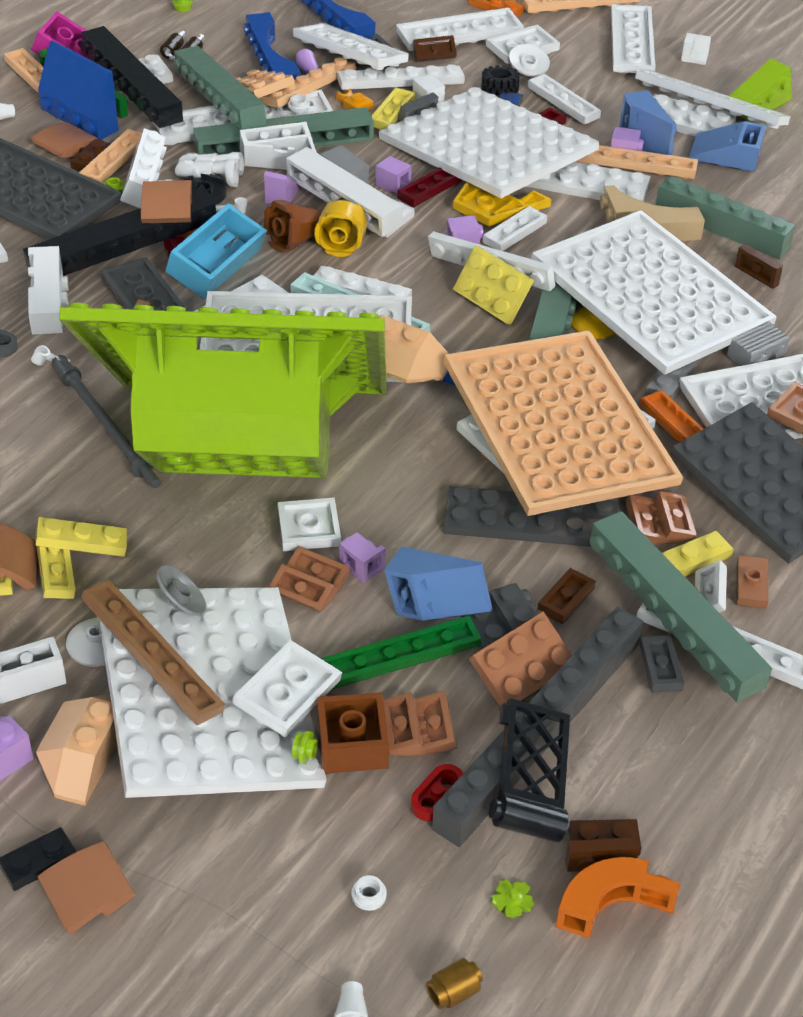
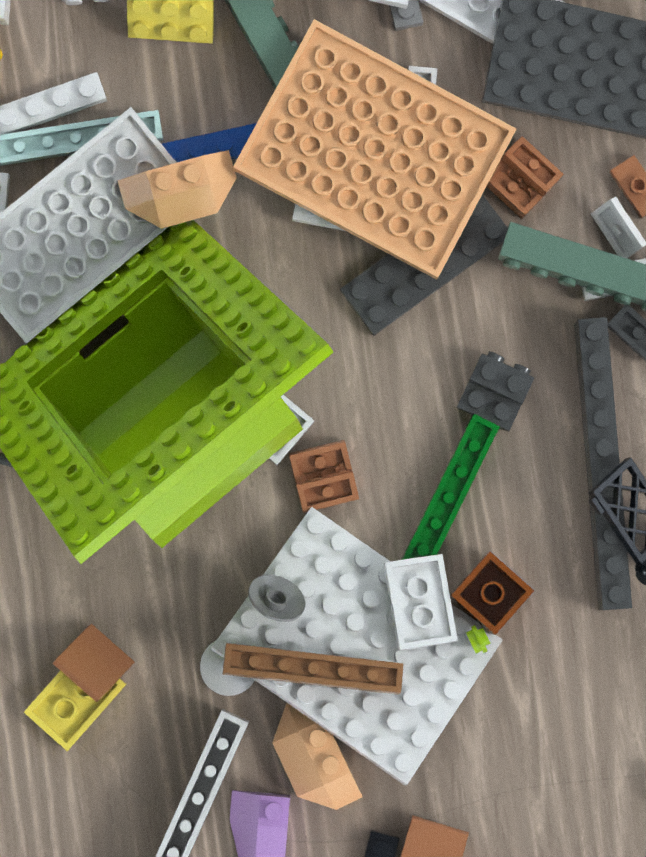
camera: 40 degrees left, 40 degrees up
(56, 572) = (128, 632): light yellow plate -> none
(81, 536) = (124, 594): light yellow plate -> none
(362, 557) = (342, 423): lavender brick -> none
(372, 885) = (615, 702): white plate -> none
(419, 724) = (518, 536): nougat slope -> none
(433, 789) = (583, 583): red plate -> none
(436, 585) = (430, 423): medium blue slope -> none
(521, 660) = (547, 422): nougat plate -> none
(566, 595) = (521, 326): reddish brown plate -> none
(670, 415) = (448, 51): orange plate -> none
(699, 553) = (575, 199): light yellow plate -> none

